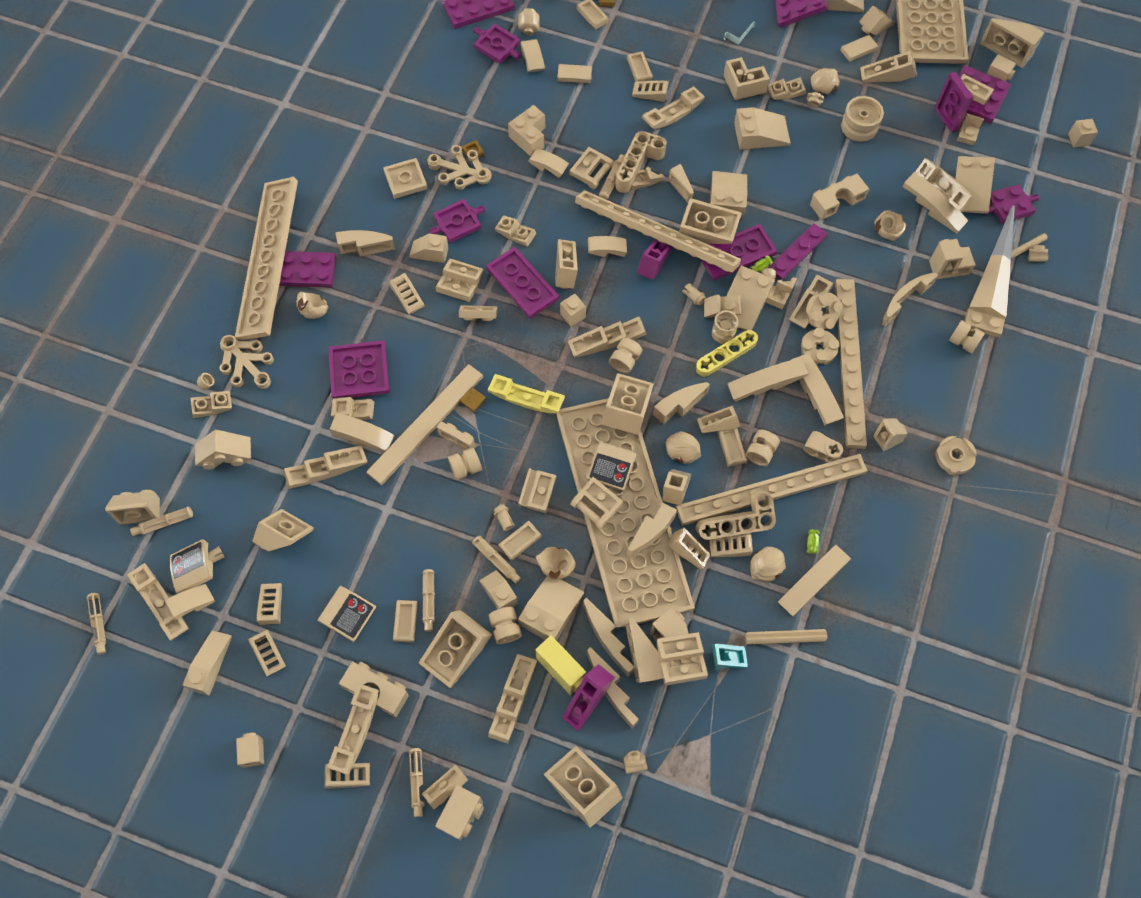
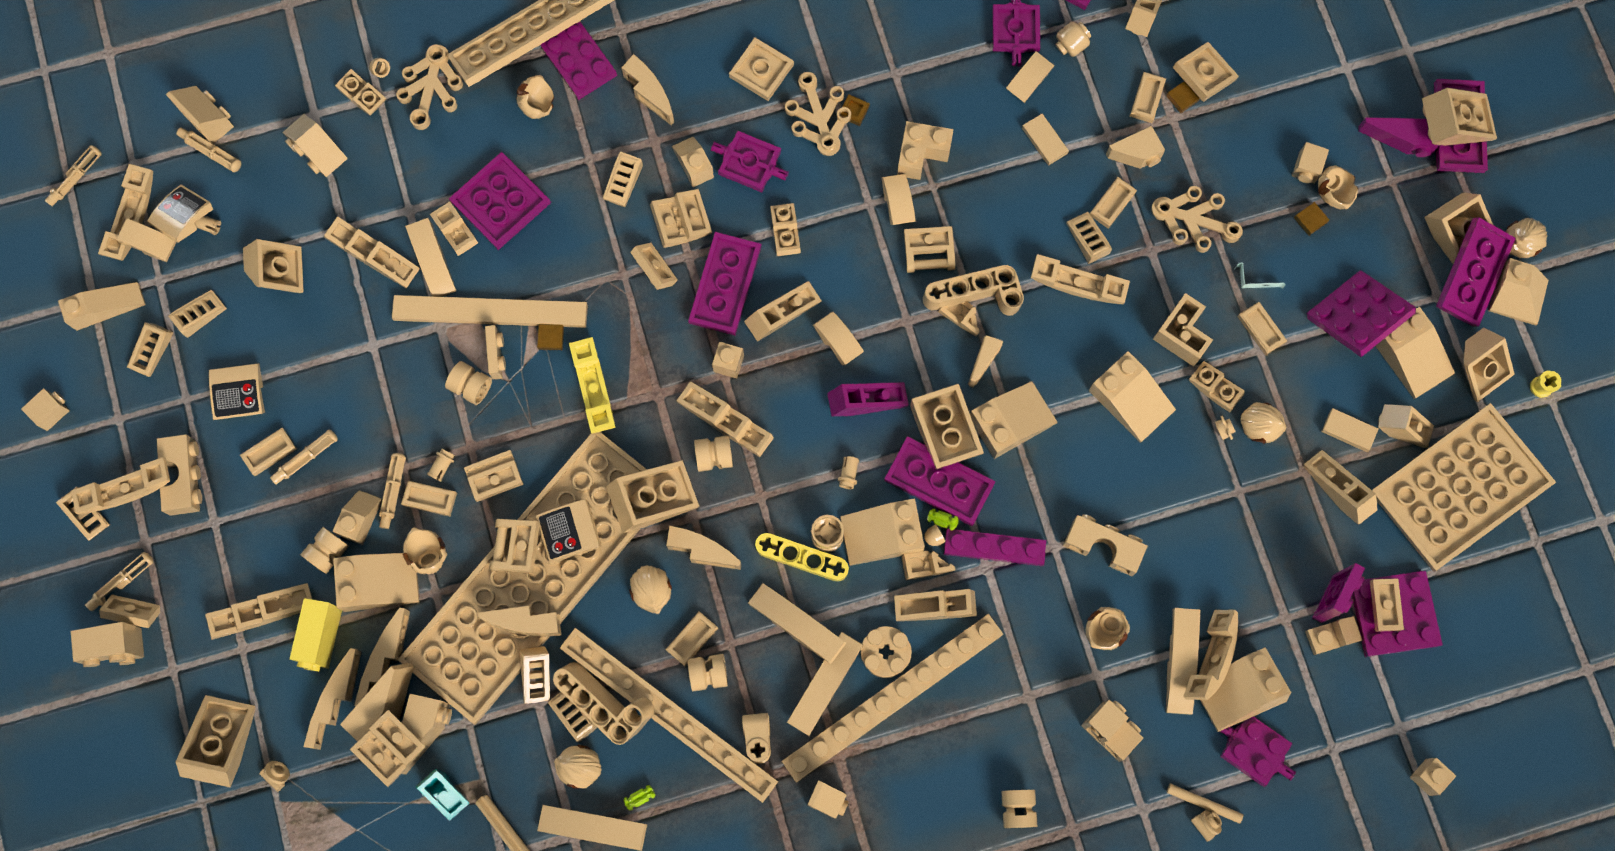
camera: 55 degrees right, 10 degrees up
(455, 647) = (272, 519): tan slope -> none
(588, 696) = (303, 683): magenta slope -> none
(611, 179) = (921, 283): tan piece -> none
(621, 34) = (1138, 149): none -> tan slope
(658, 231) = (894, 379): tan plate -> none
(666, 46) = (1193, 218): none -> tan plant
(676, 486) = (596, 611): tan slope -> none
(716, 304) = (852, 514): tan slope -> none
(719, 420) = (716, 618): tan slope -> none
(769, 49) = (1262, 328): none -> tan tile
(831, 315) = (927, 639): tan plate -> none
(862, 118) = (1250, 502): tan wheel -> none
(918, 284) = (1056, 715): tan slope -> none
(990, 300) = (1091, 807): tan plate -> none
(1002, 68) = (1454, 619): tan brick -> none
(1012, 40) = (1507, 610): tan slope -> none

